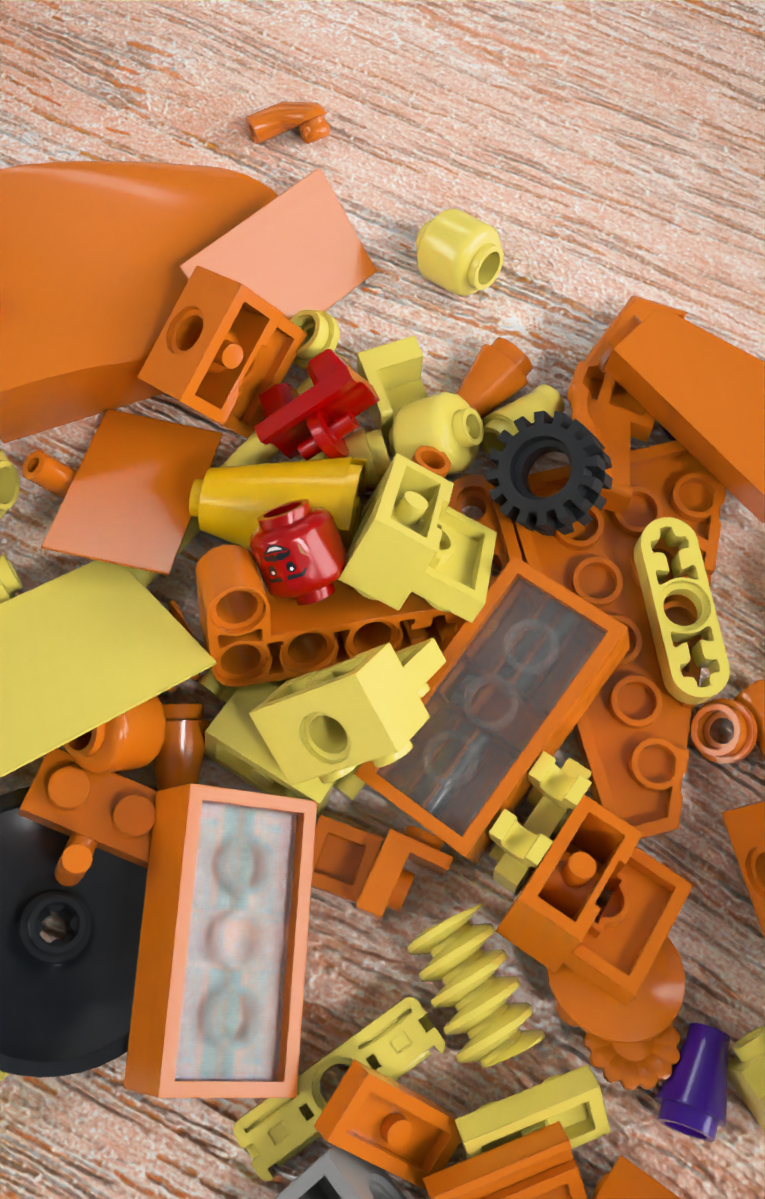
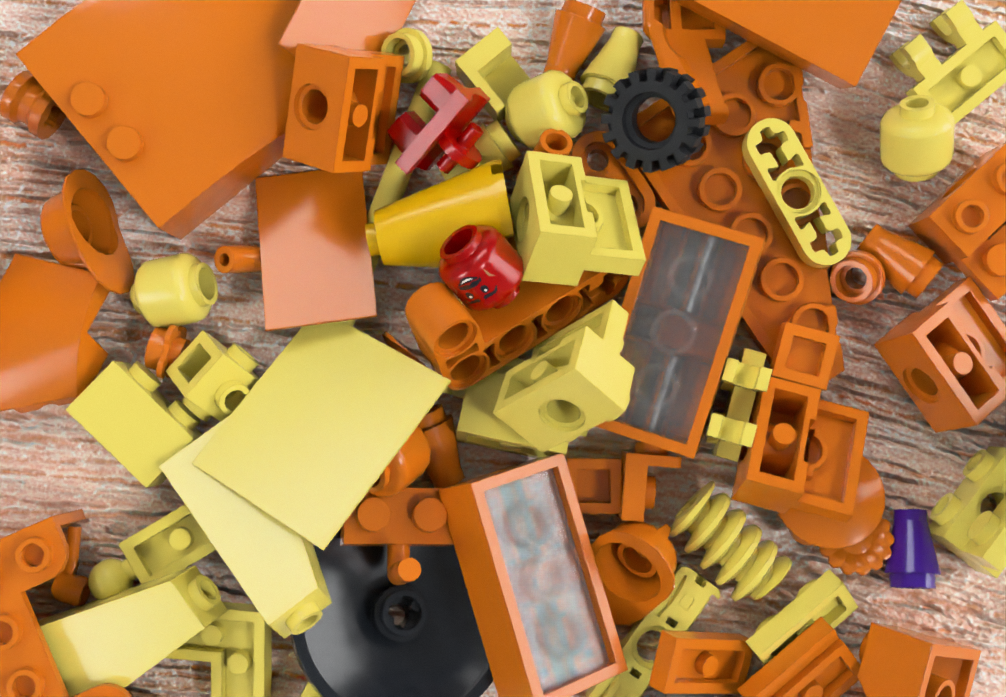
camera: 20 degrees left, 15 degrees up
(350, 975) = (635, 568): none -> orange piece
(636, 788) = (804, 355): none -> orange plate

